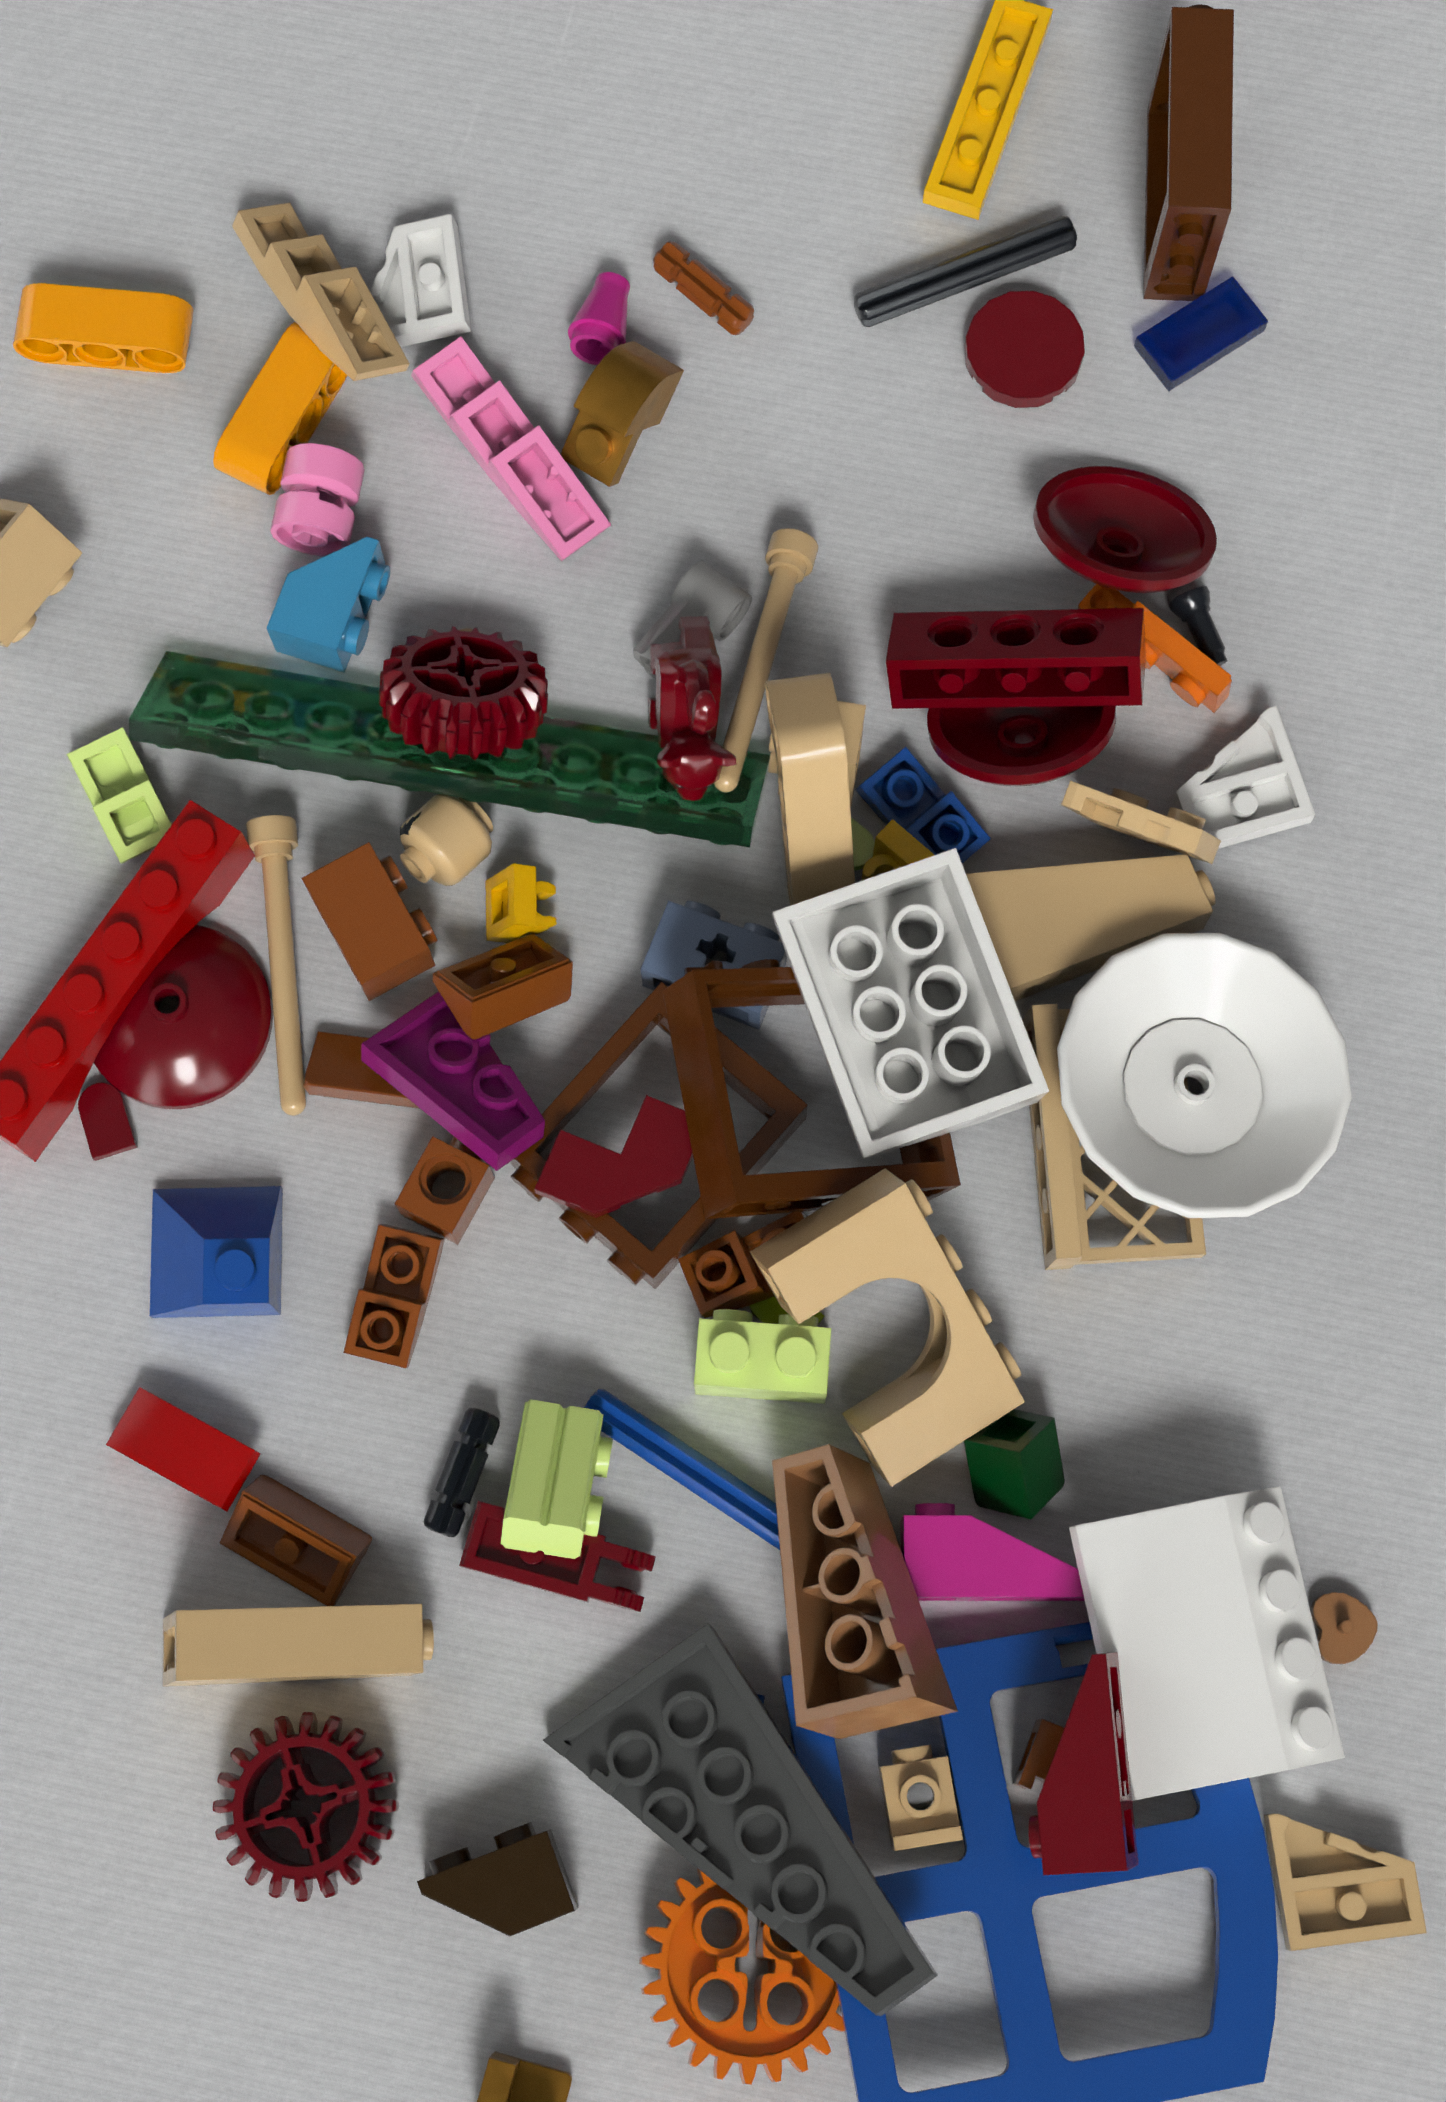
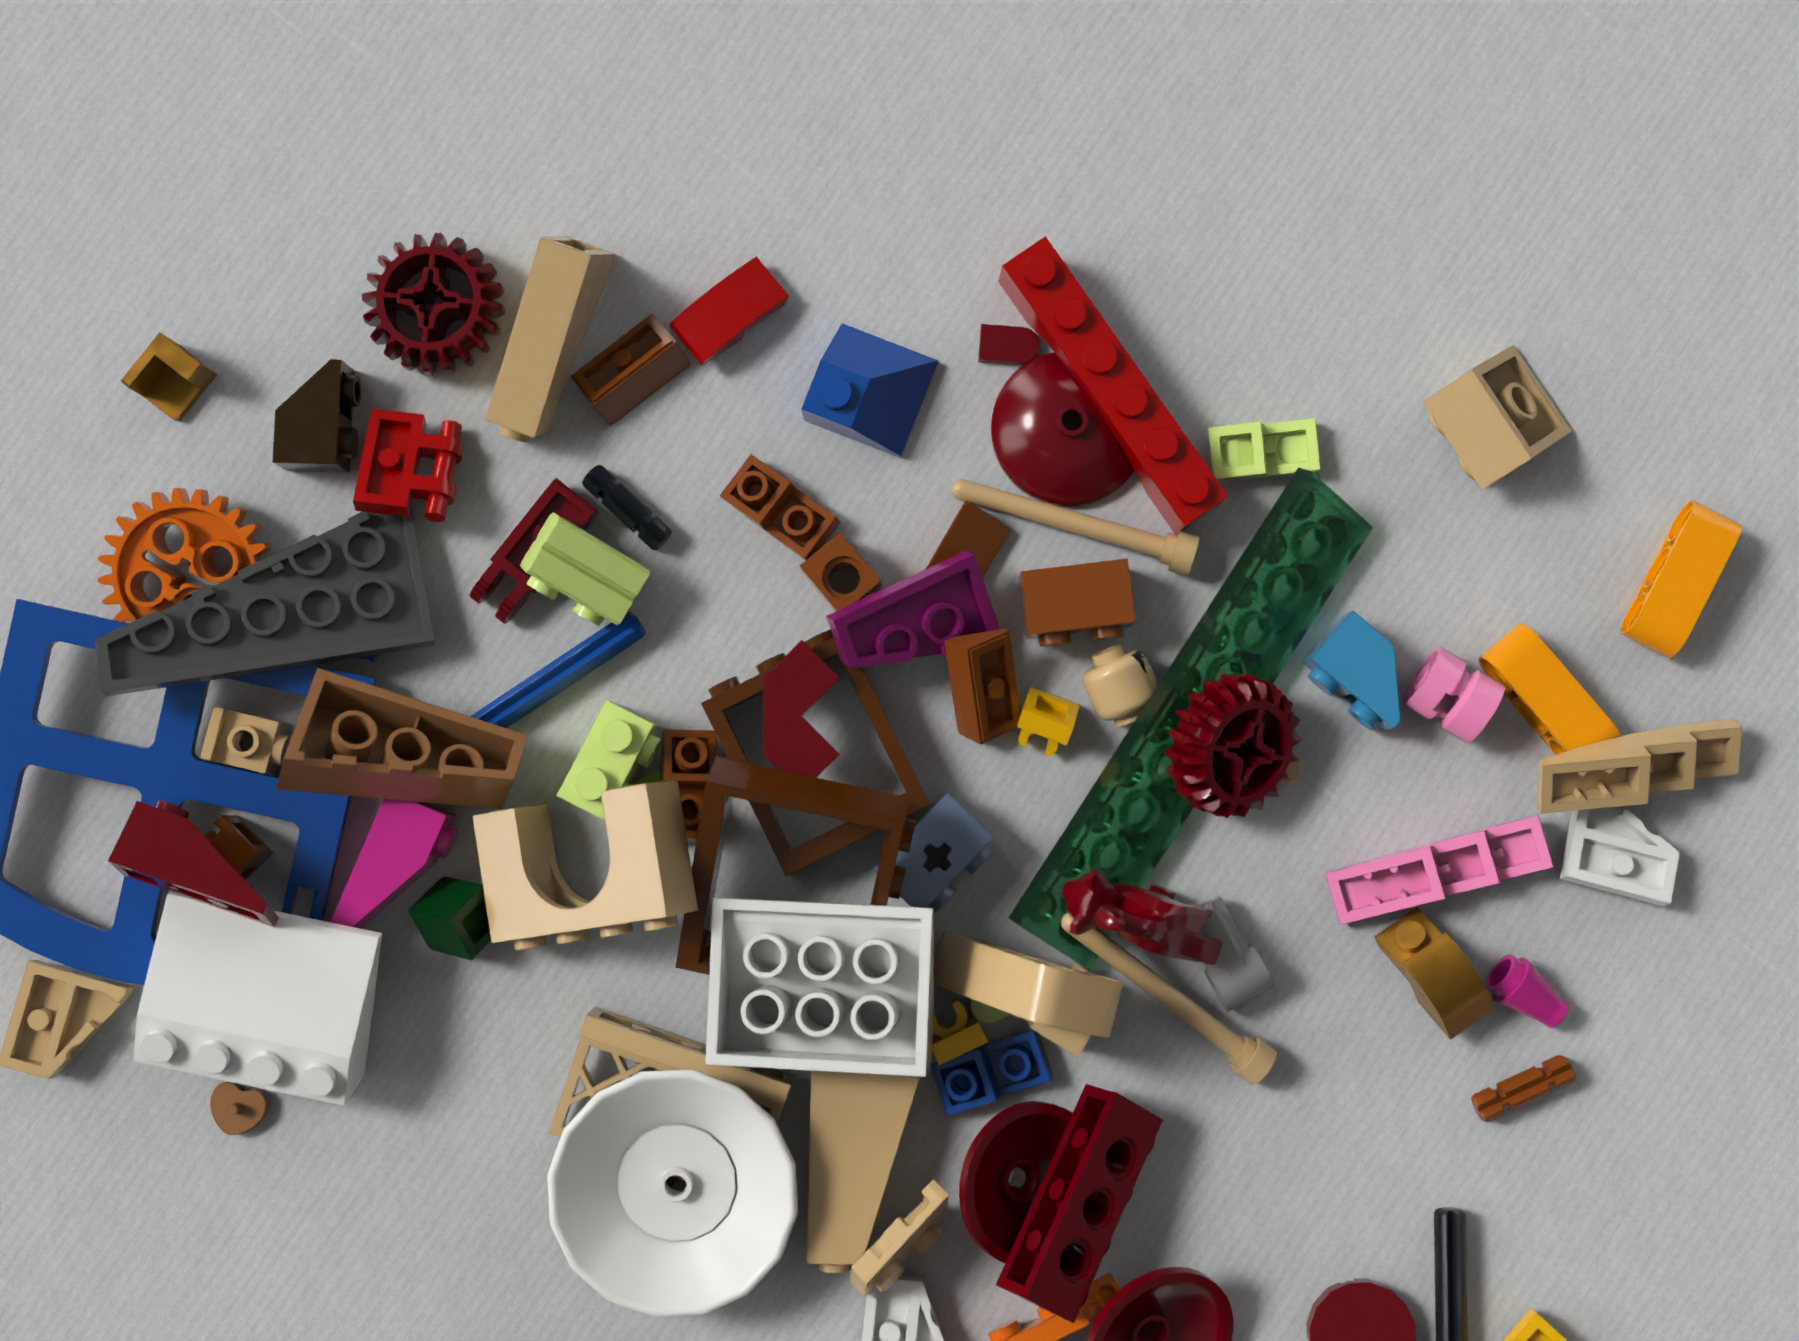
camera: 115 degrees right, 10 degrees up
(521, 1768) = (391, 464): none -> red plate

